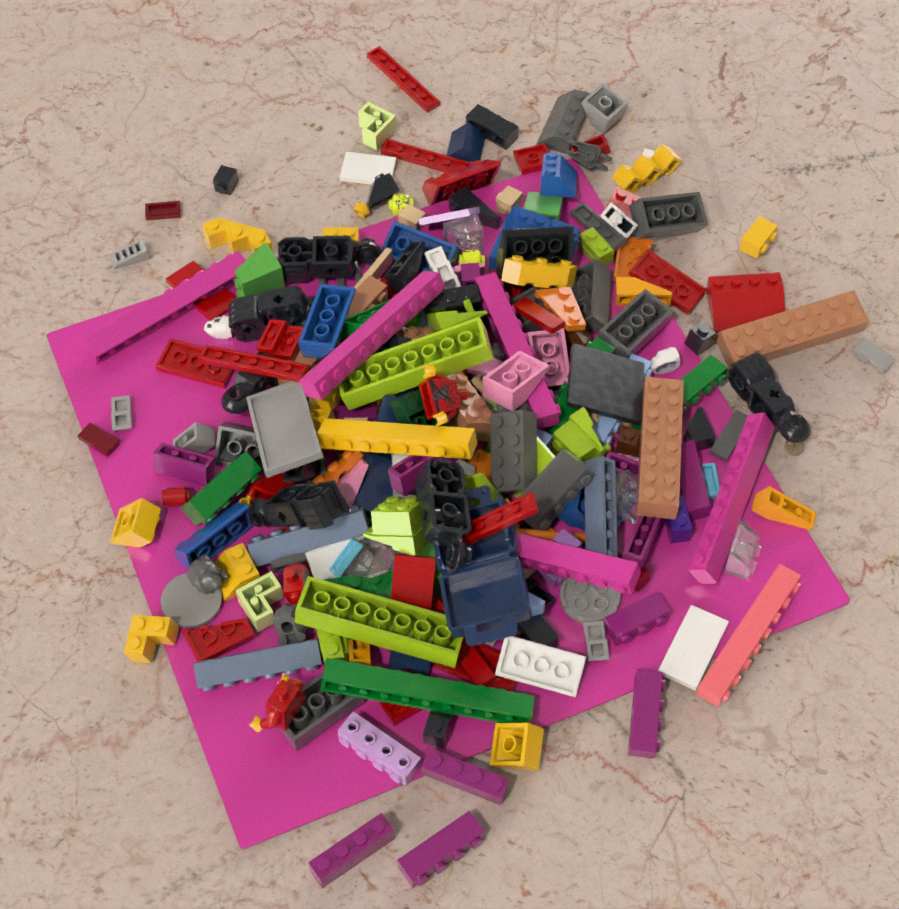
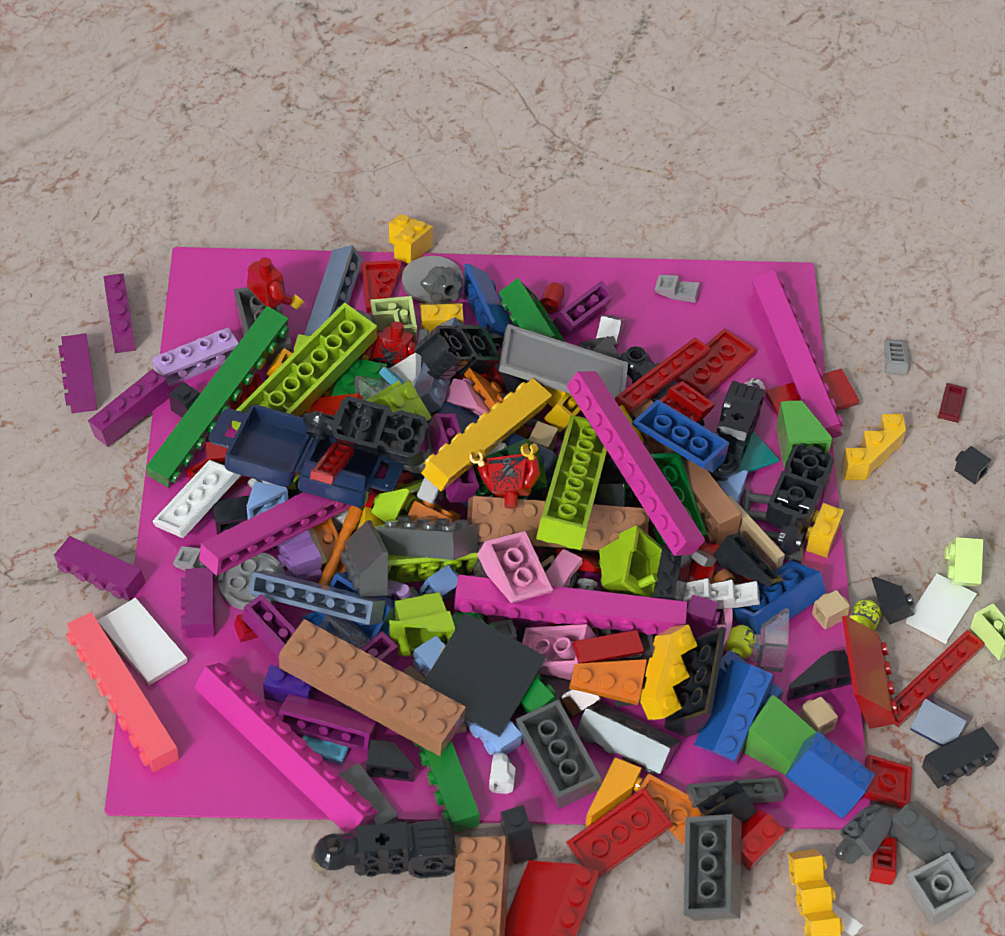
camera: 110 degrees right, 5 degrees down
(98, 439) = (654, 264): dark red tile -> none
(136, 524) = (535, 261): yellow slope -> none
(326, 153) = (964, 561): none -> yellowish green brick
(361, 209) = (873, 571): yellow plate -> none
(448, 216) = (808, 633): tile -> none
(517, 746) = (128, 457): yellow slope -> none
(595, 247) = (700, 771): lime brick -> none
(743, 552) = (213, 723): clear slope -> none
(781, 508) = (242, 794): light orange slope -> none

